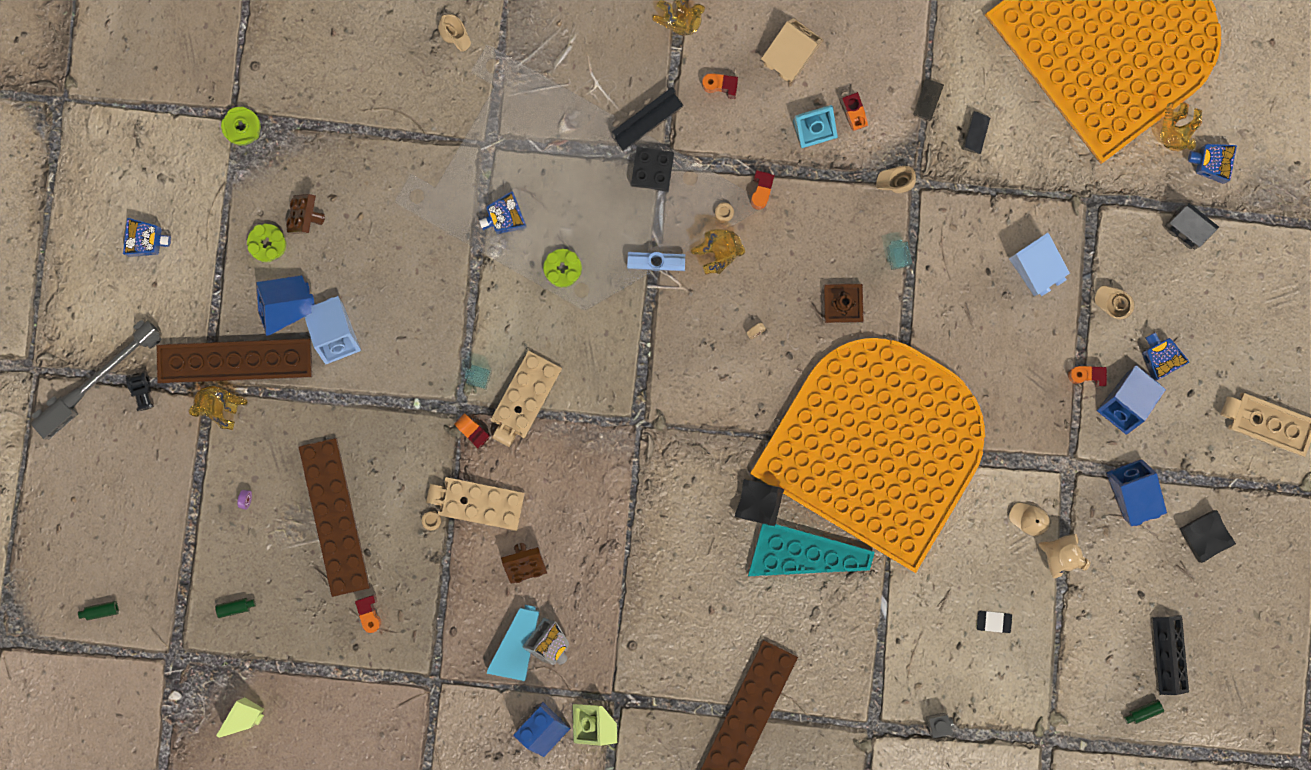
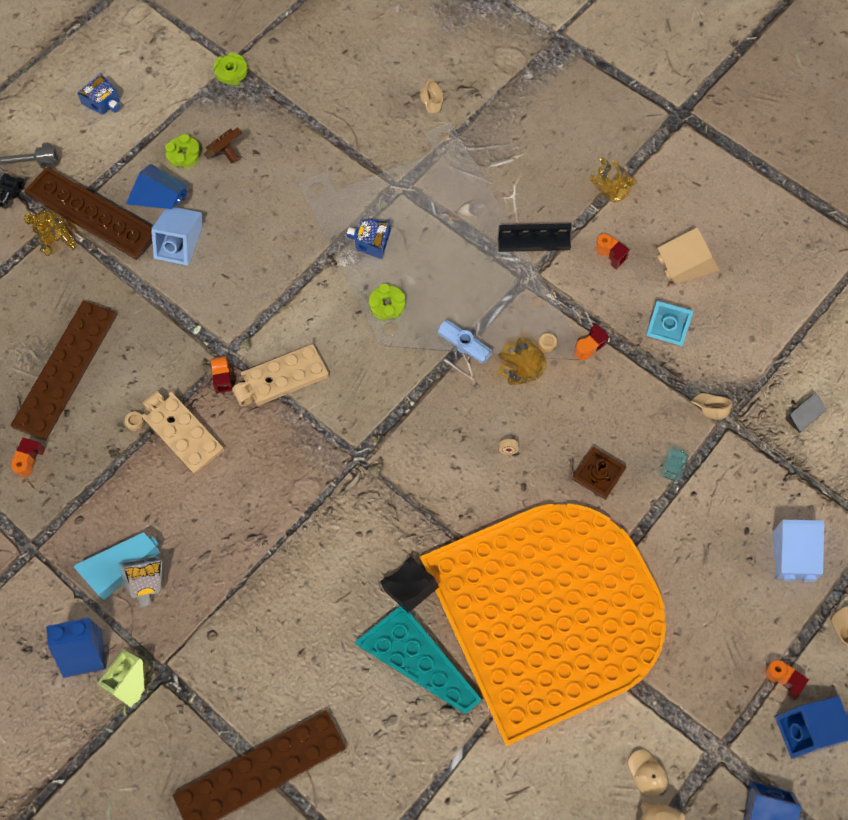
camera: 40 degrees right, 20 degrees down
(244, 499) = (11, 310): medium lavender tile -> none
(478, 377) = (258, 337): clear light blue brick -> none
(523, 564) = (177, 497): reddish brown plate -> none
(652, 169) = (512, 275): black brick -> none
(854, 111) = (710, 331): leg -> none
(928, 99) = (780, 363): clear smoke plate -> none

